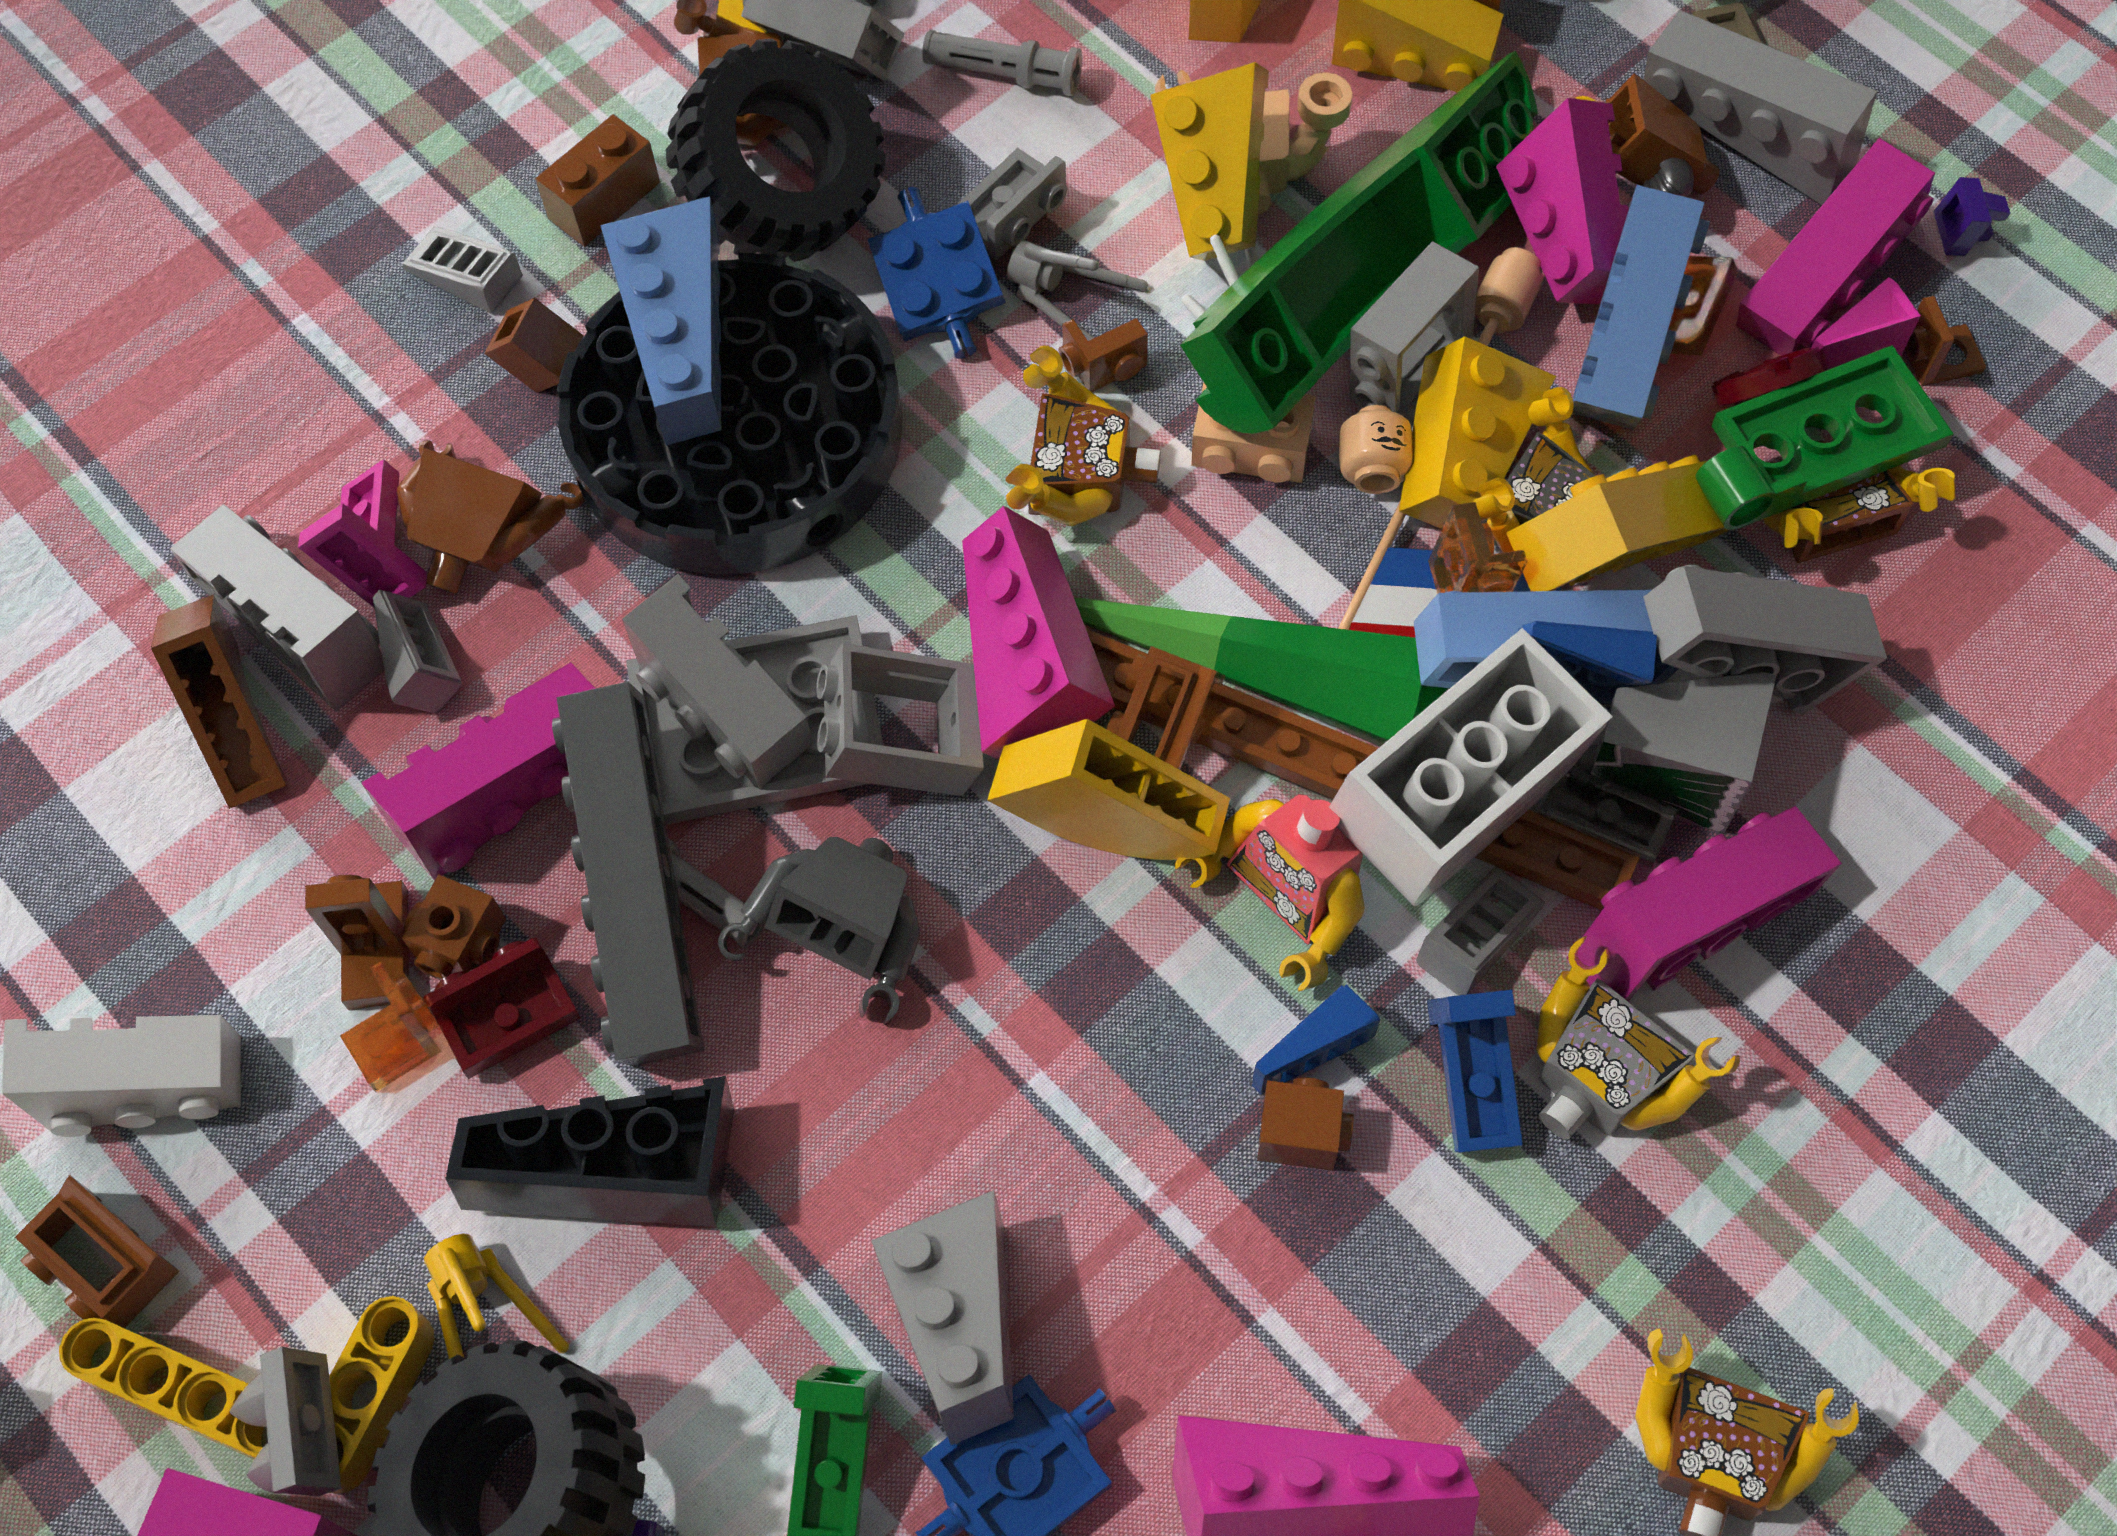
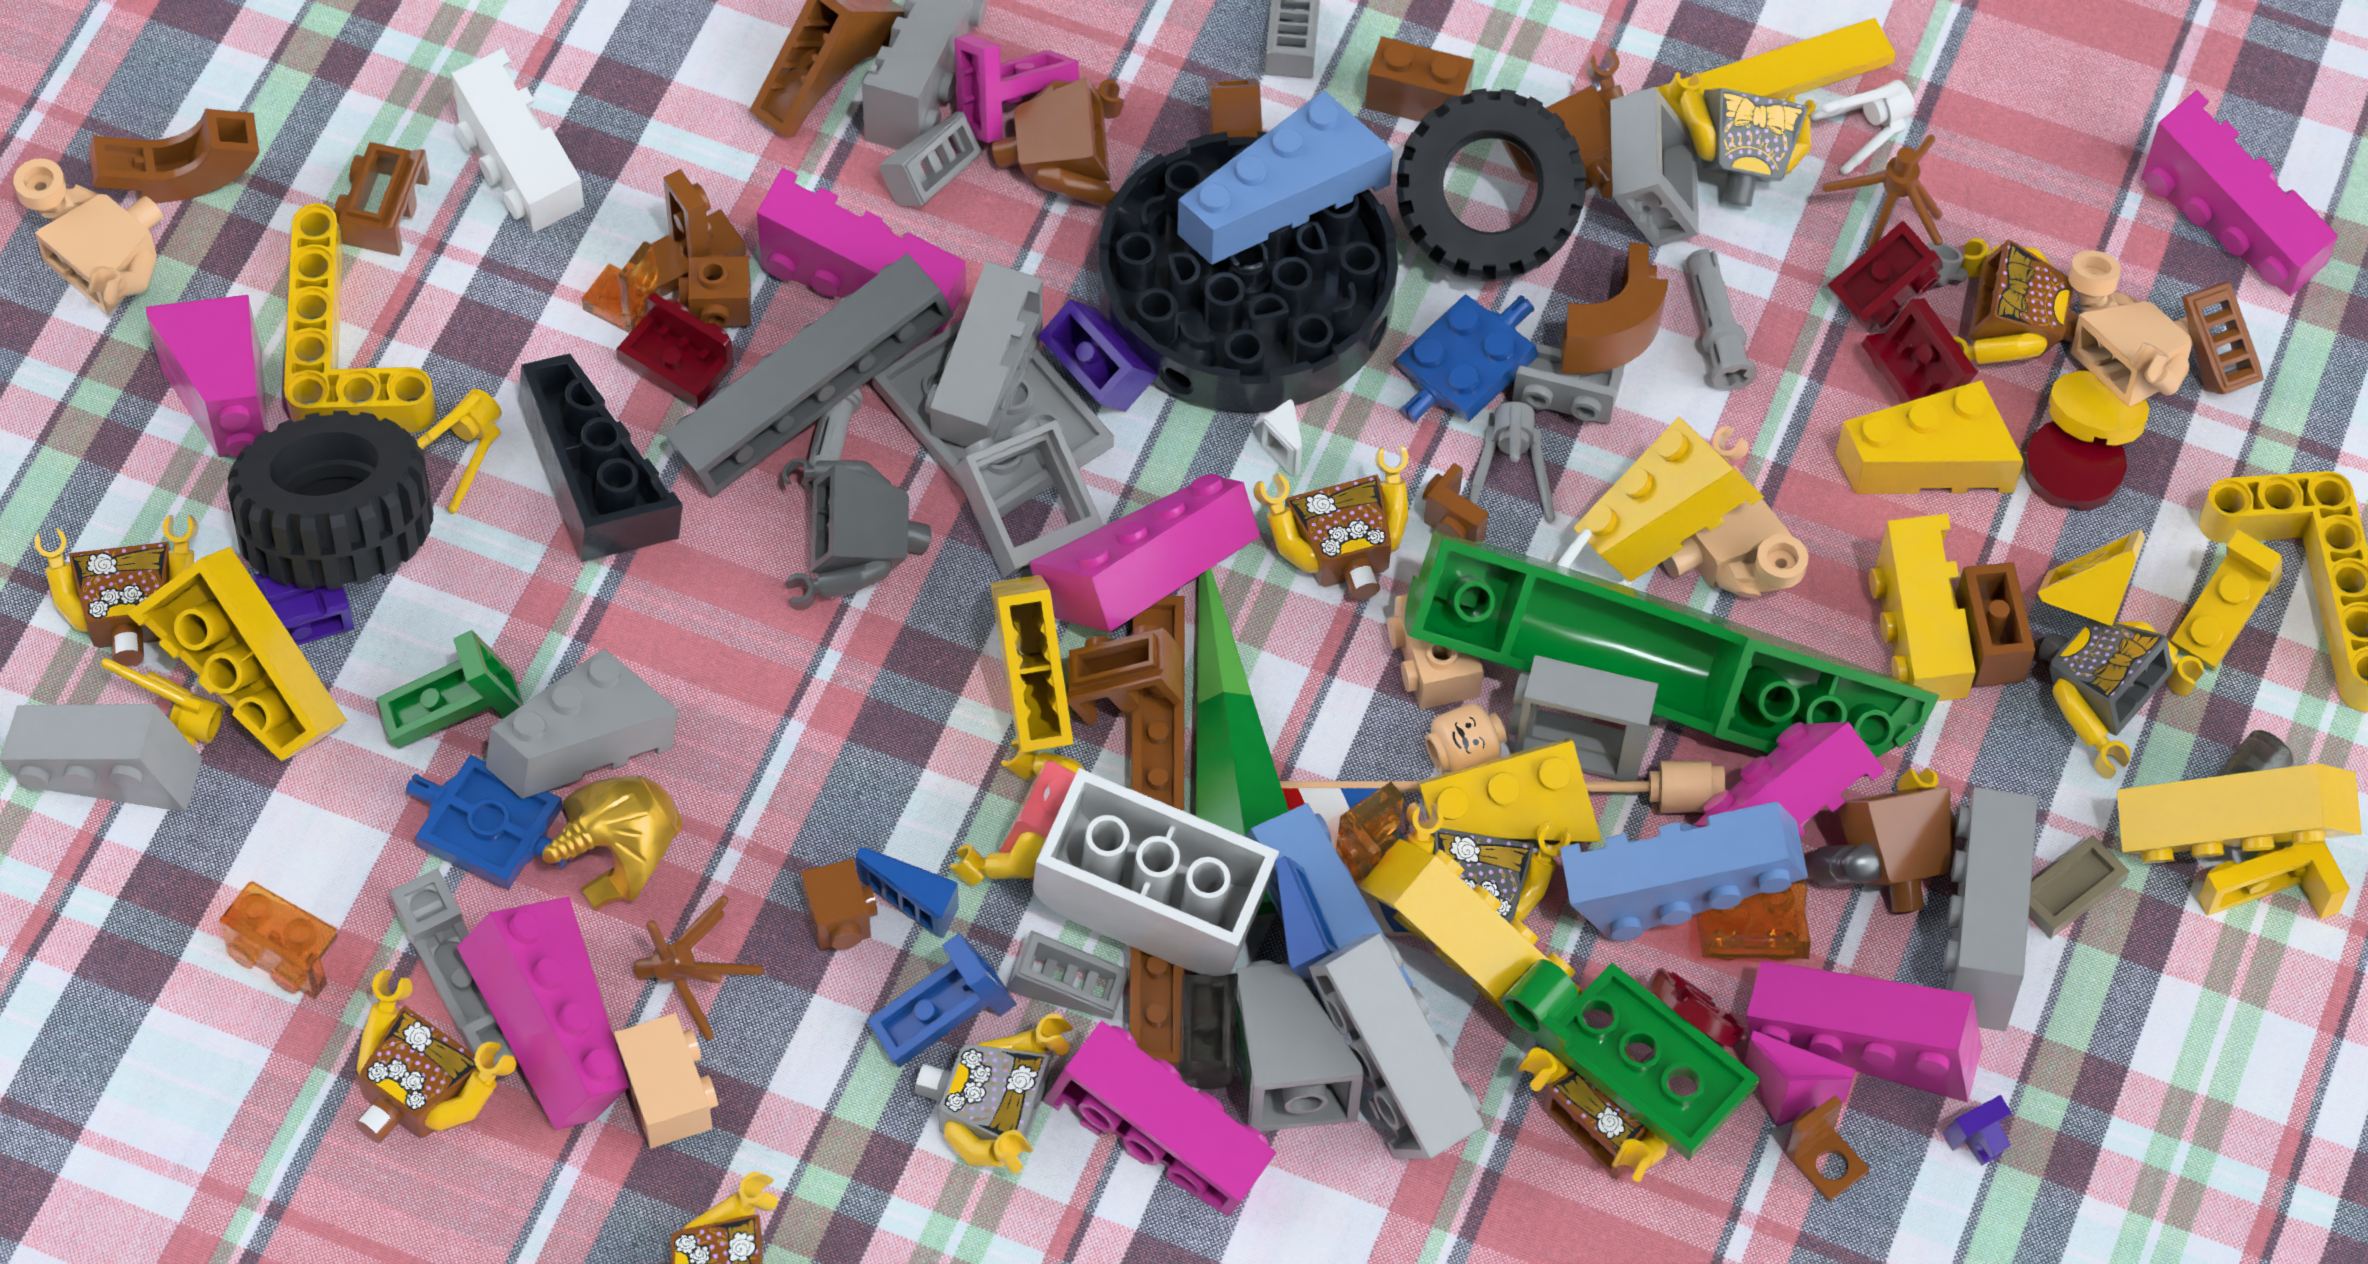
camera: 60 degrees right, 5 degrees down
(297, 1409) = (316, 359): light grey tile -> none
(757, 586) = (1097, 355): none -> dark purple brick
(944, 462) = (1282, 437): none -> white slope
(972, 110) = (1618, 329): none -> dark orange arch
(1110, 1305) = (631, 819): none -> pearl gold piece
(1301, 1329) = (677, 962): none -> dark orange plant
(1459, 1400) = (665, 1080): none -> light nougat brick

